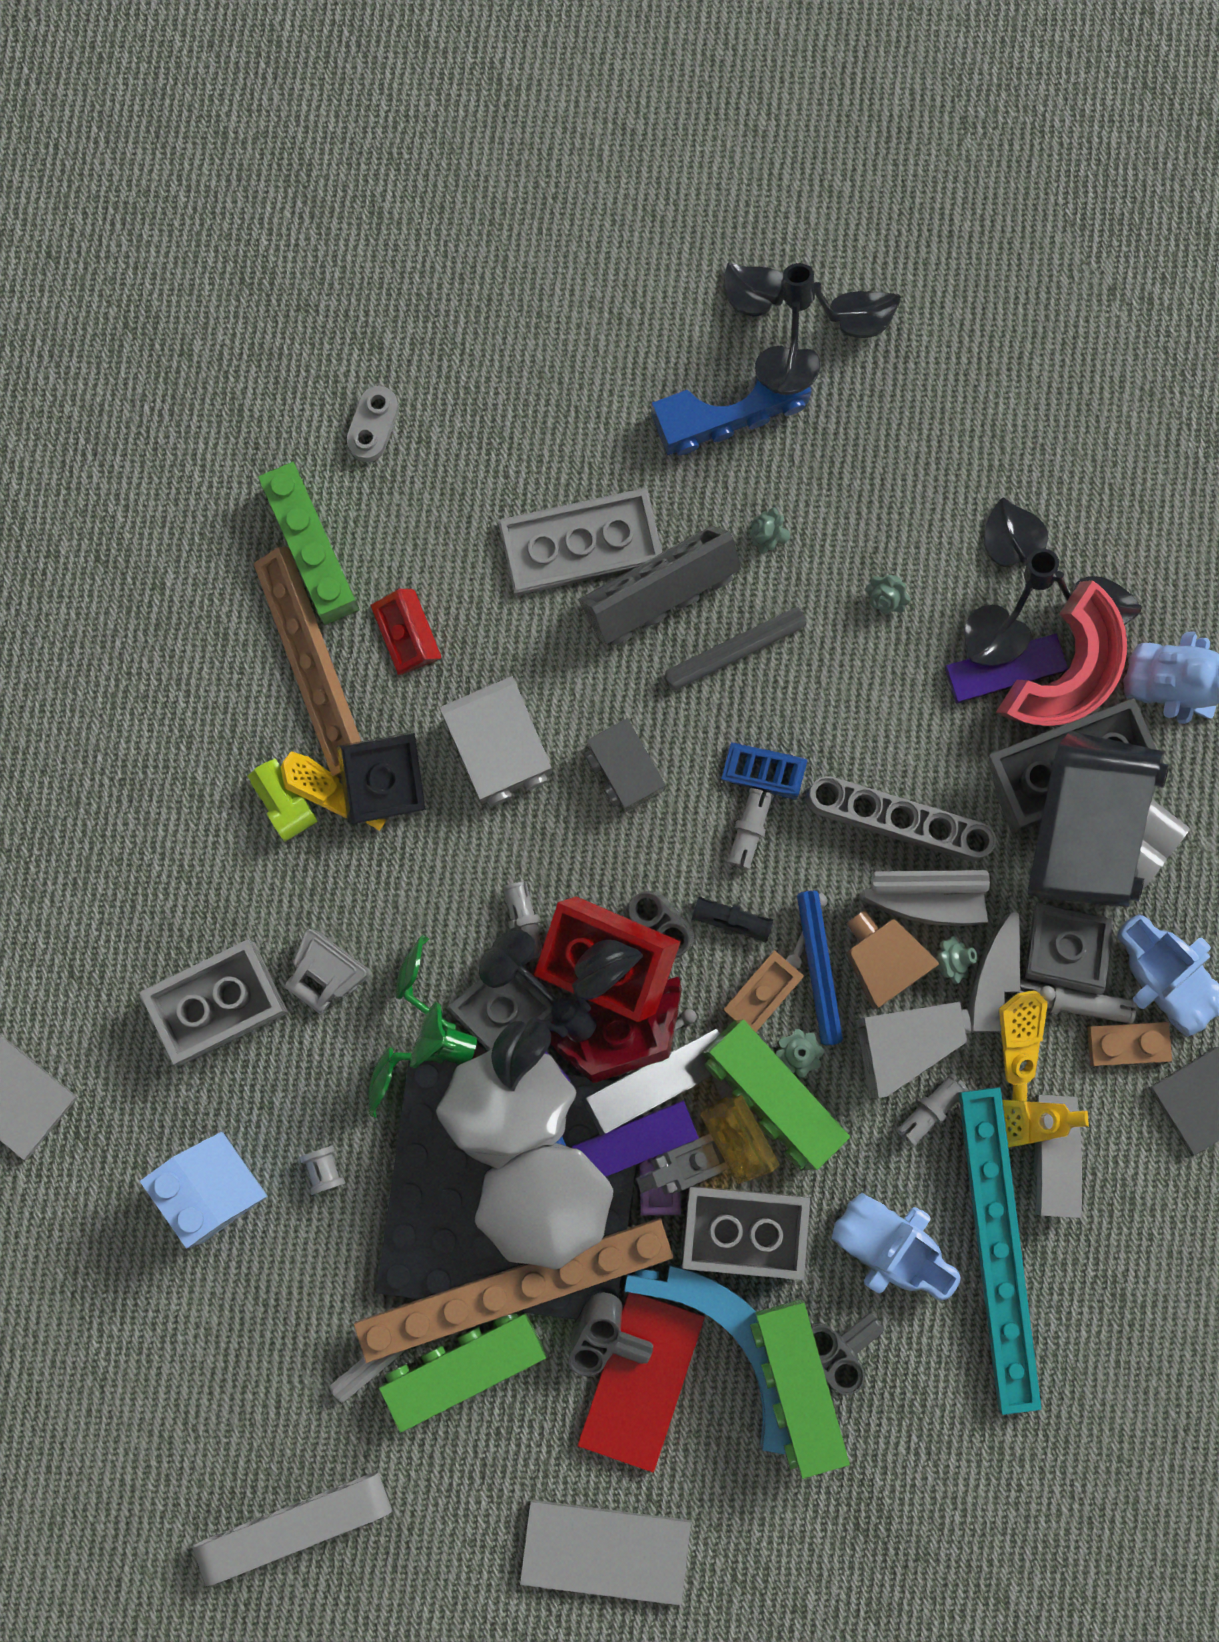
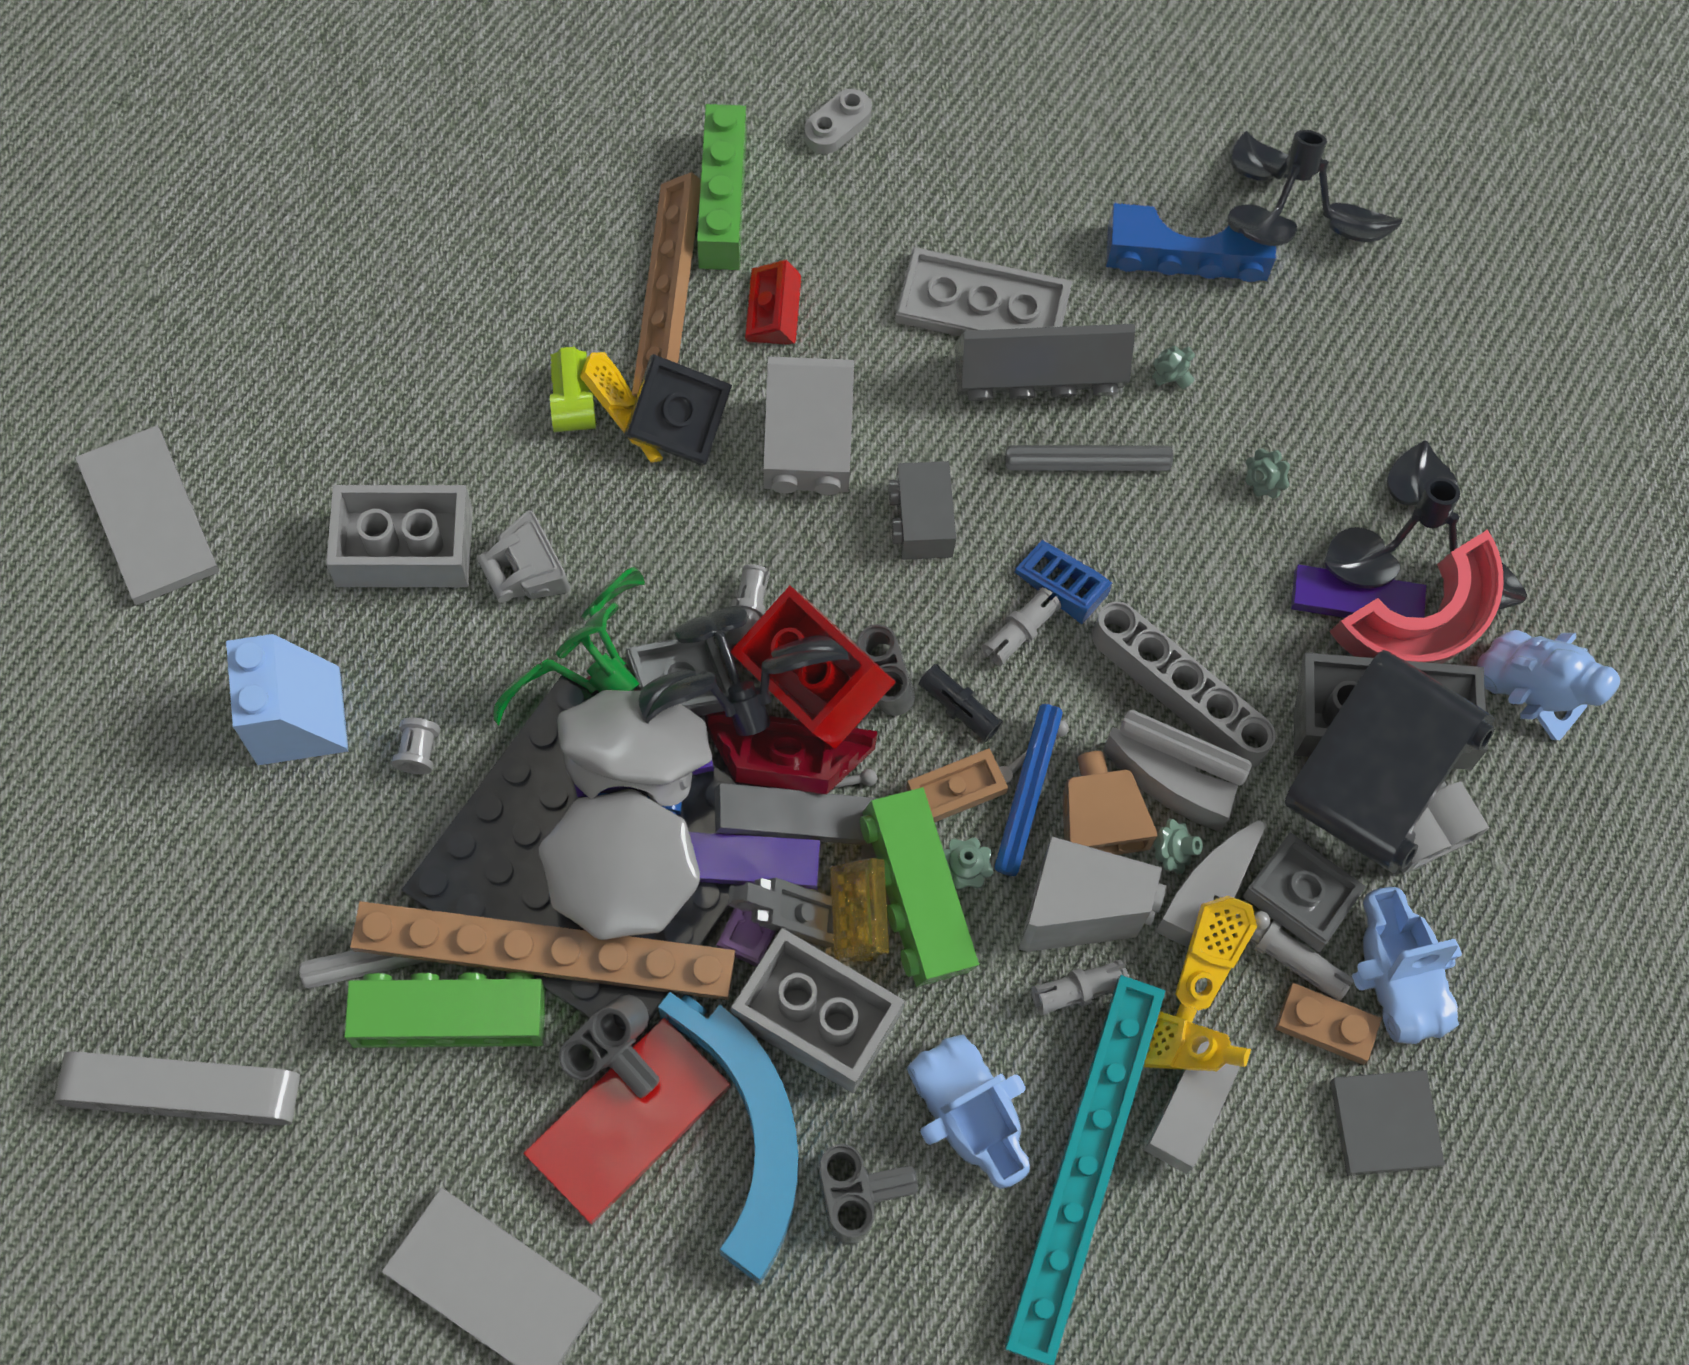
camera: 25 degrees right, 15 degrees down
(801, 1389) = (794, 1195): bright green brick -> none

